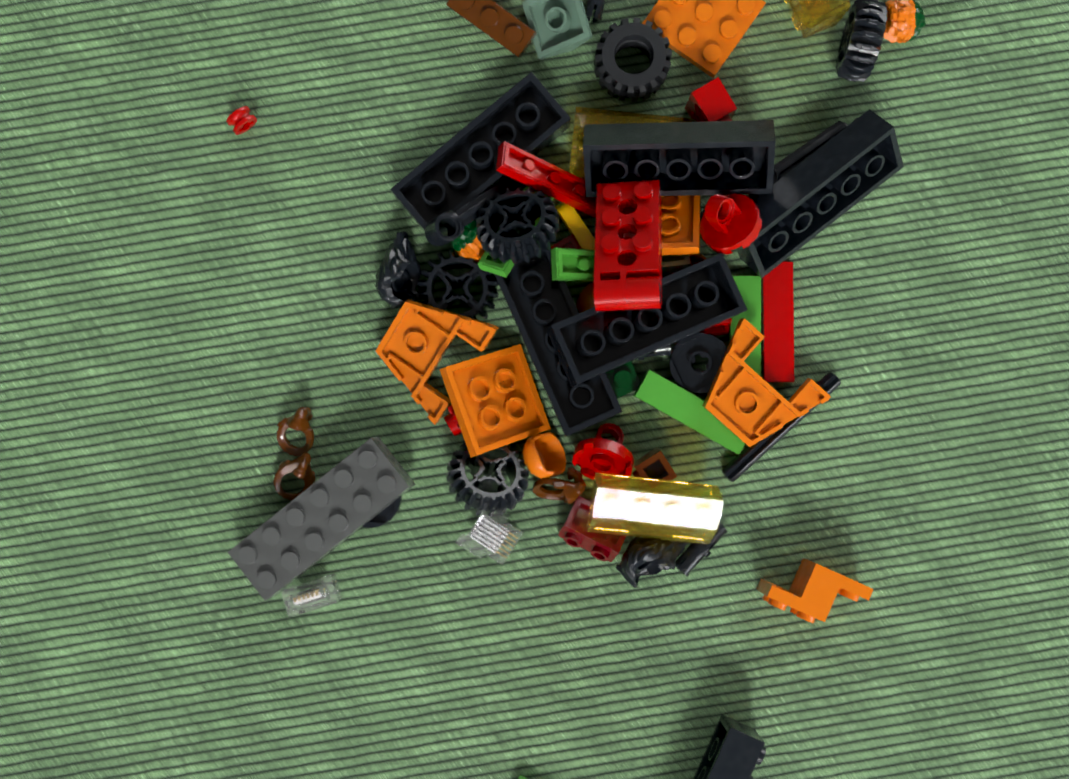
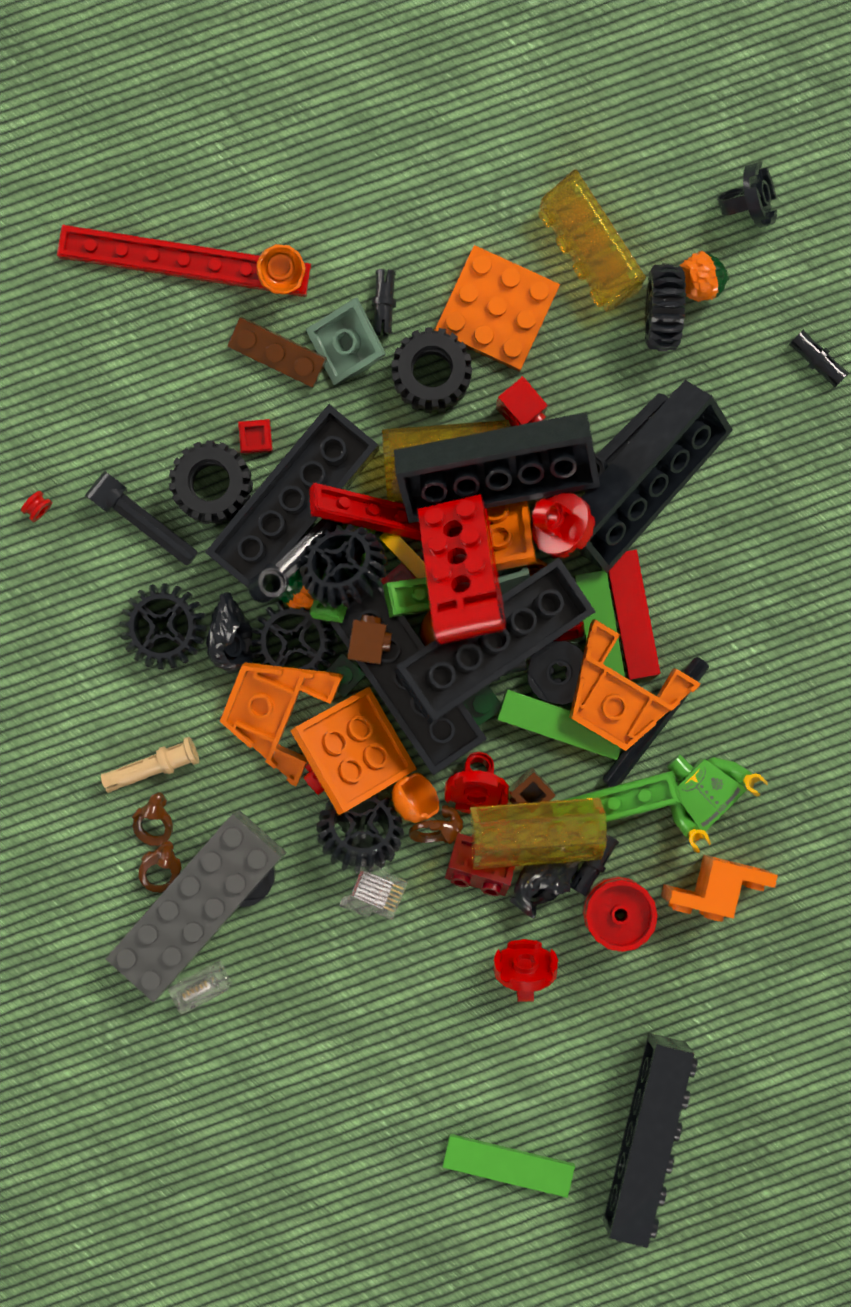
camera: 10 degrees left, 0 degrees up
(313, 123) = (111, 496): none -> black axle
(317, 378) = (163, 761): none -> tan pin
(322, 233) = (141, 609): none -> black gear
(402, 103) = (192, 463): none -> black tyre
(457, 93) = (255, 436): none -> red tile
(505, 331) = (351, 673): none -> dark green plate
(528, 298) = (369, 640): none -> reddish brown brick
(619, 633) = (525, 968): none -> red tile
(734, 597) = (637, 905): none -> red wheel
(754, 491) = (637, 796): none -> bright green tile
(817, 500) = (707, 793): none -> bright green torso
(994, 115) = (818, 358): none -> black pin

